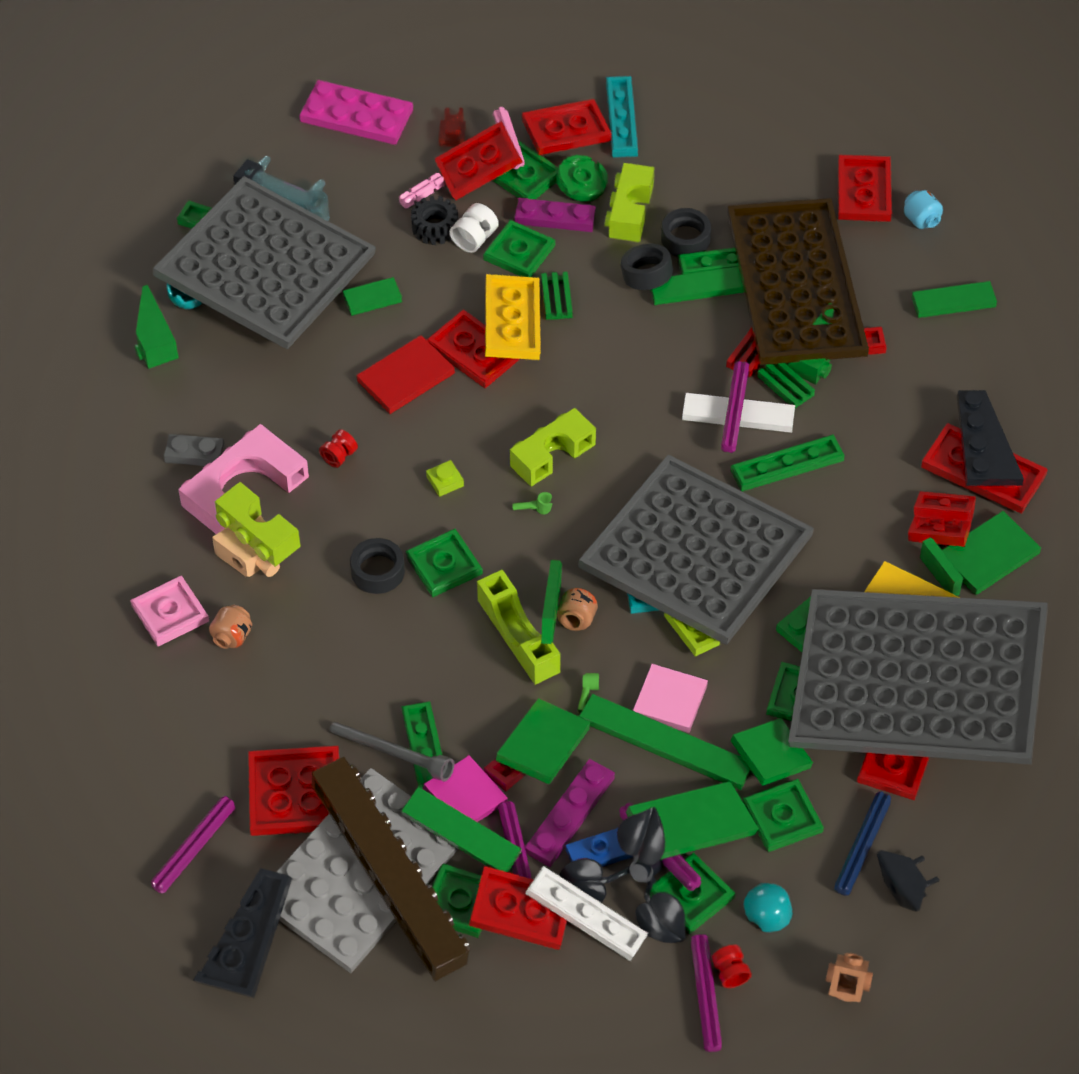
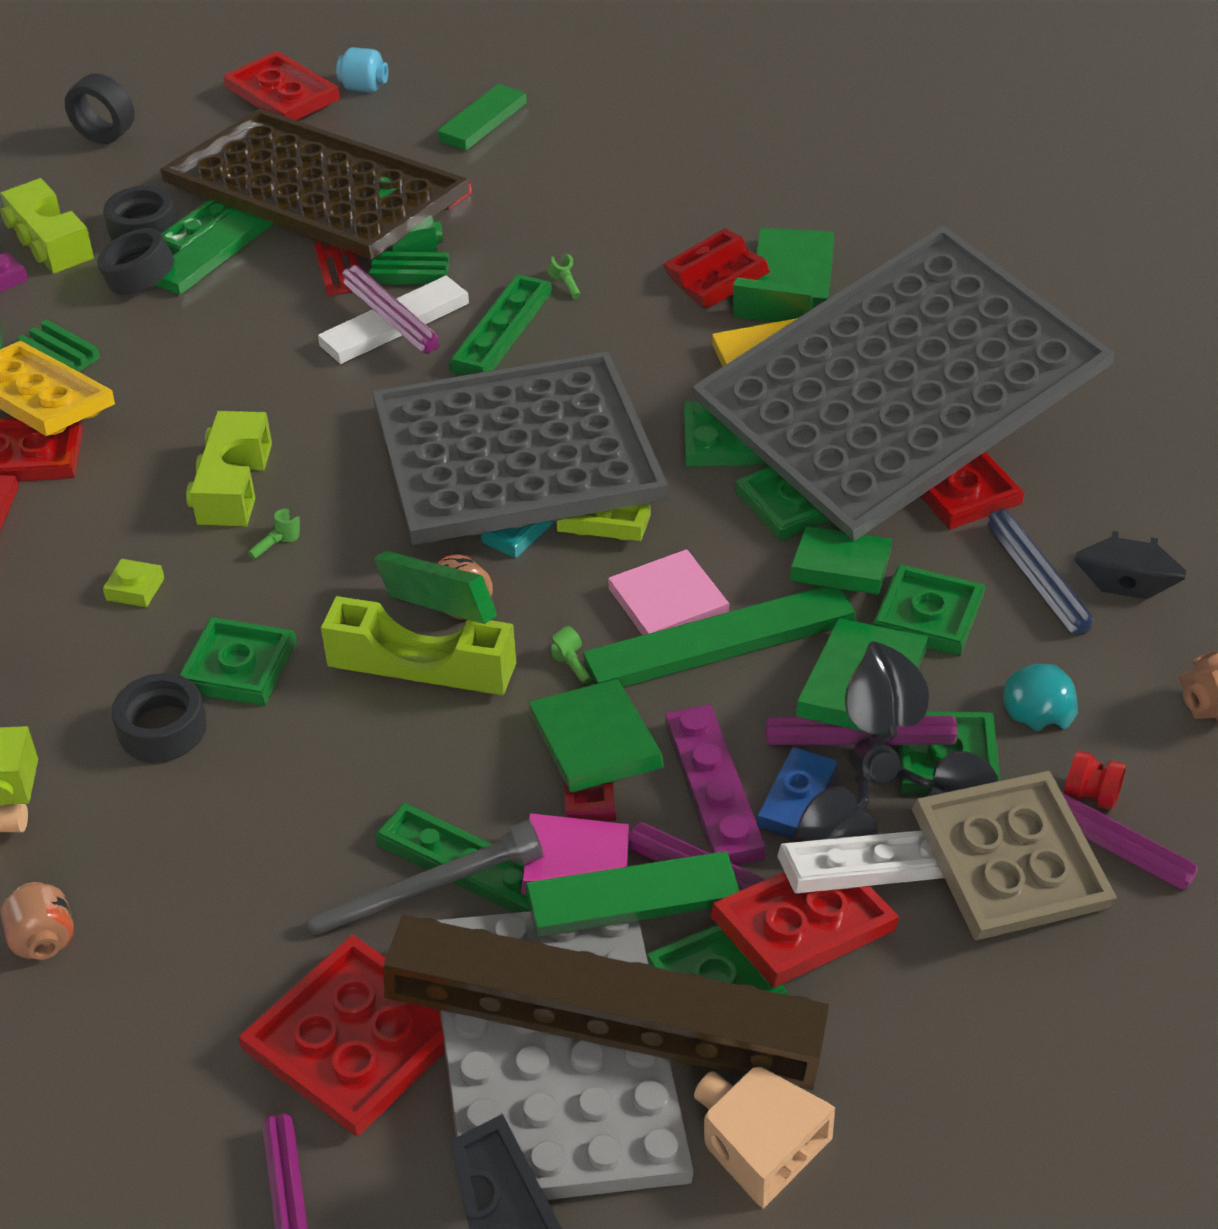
camera: 45 degrees left, 10 degrees down
(393, 978) = (763, 1129): none -> light nougat torso
(641, 963) = (1013, 854): none -> dark tan plate
(739, 133) = (114, 99): none -> black tyre
(858, 458) = (564, 274): none -> bright green hand
(947, 461) = (695, 209): red plate -> none
(984, 444) = (680, 188): black wing -> none

